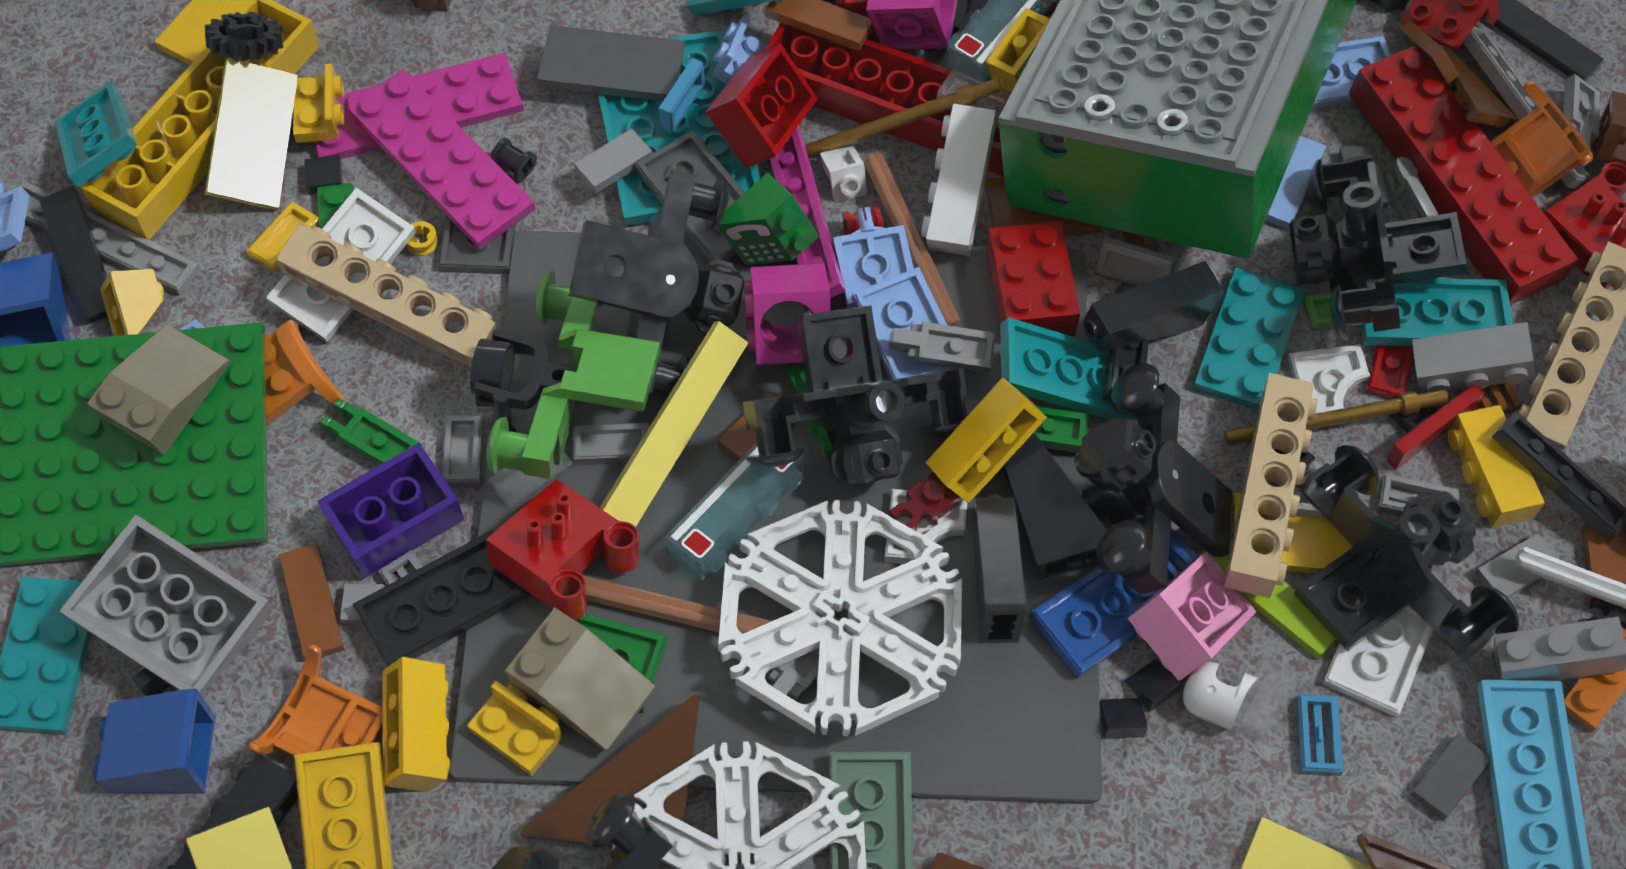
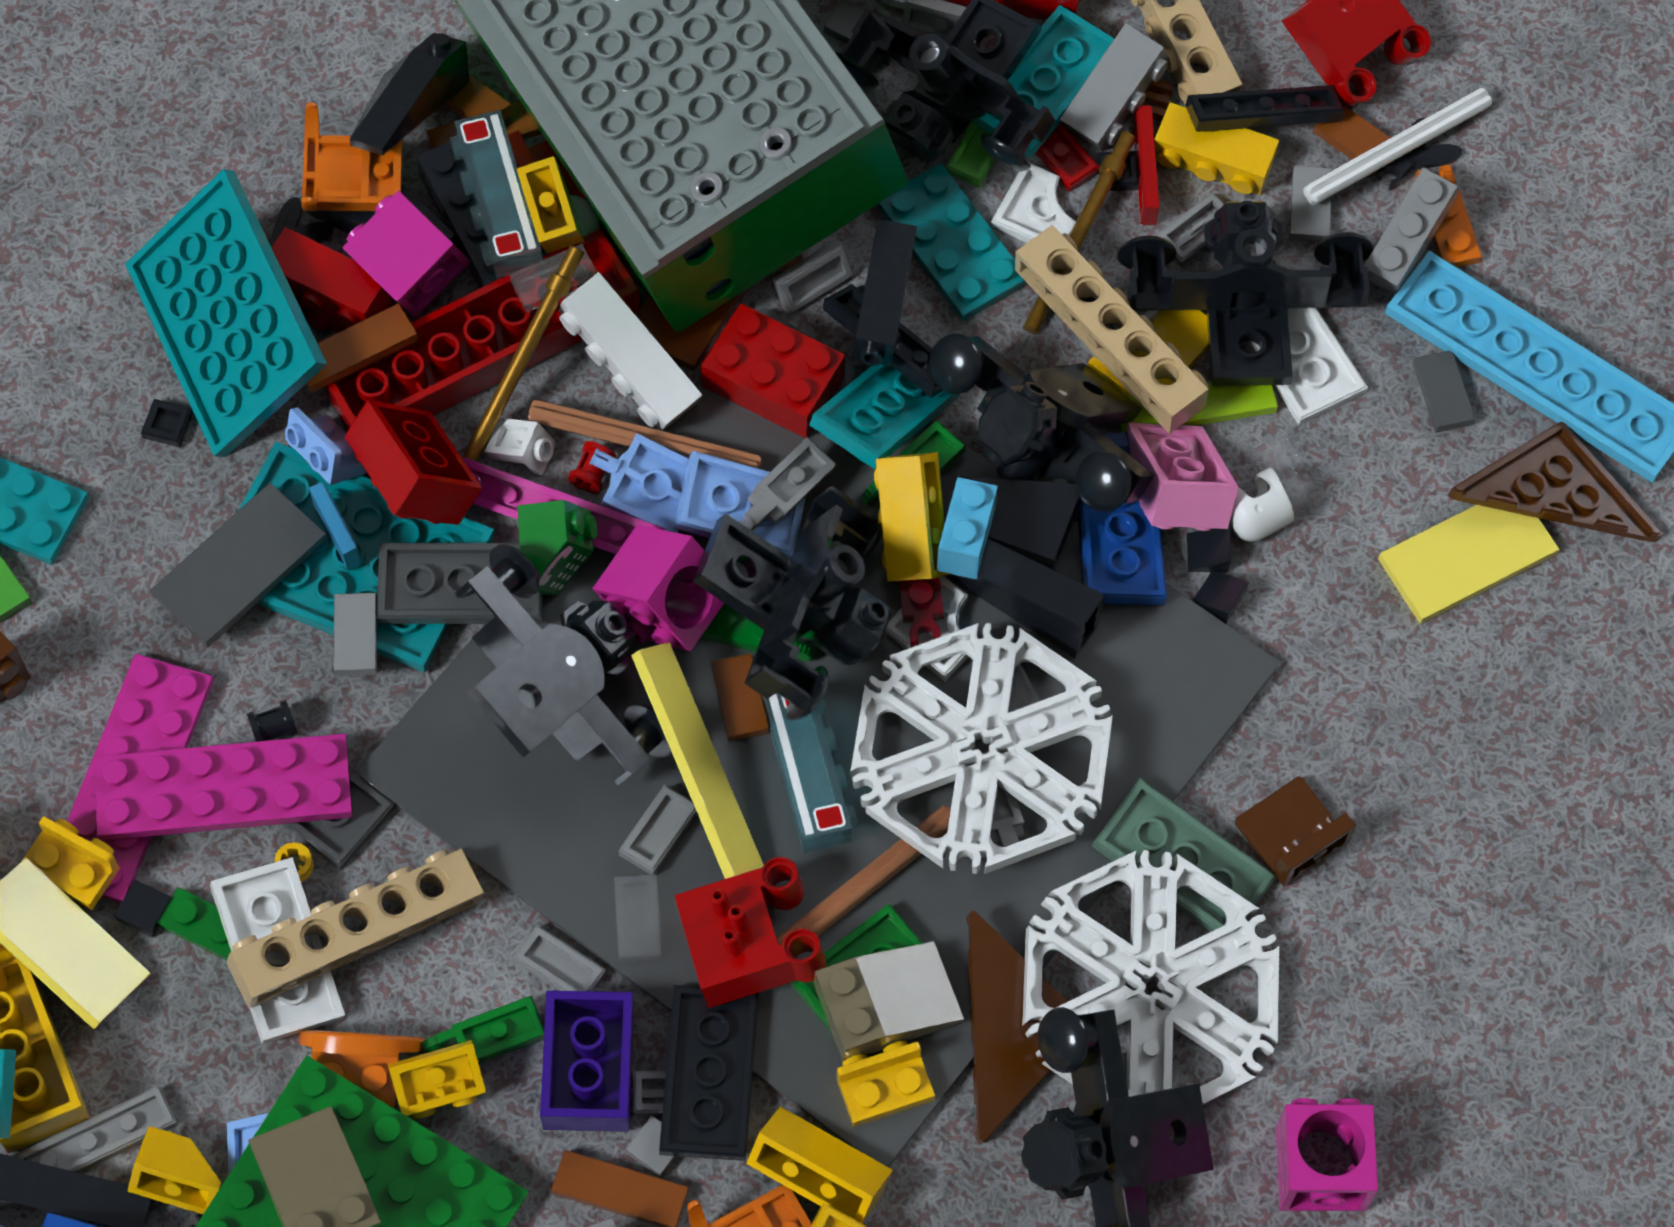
camera: 55 degrees left, 5 degrees up
(274, 238) = (188, 988): yellow tile -> none
(308, 421) = (437, 1080): none -> yellow bracket
(604, 372) = (623, 775): bright green piece -> none
(1003, 479) = (967, 528): none -> medium azure brick
(1319, 767) = (1335, 473): dark azure tile -> none

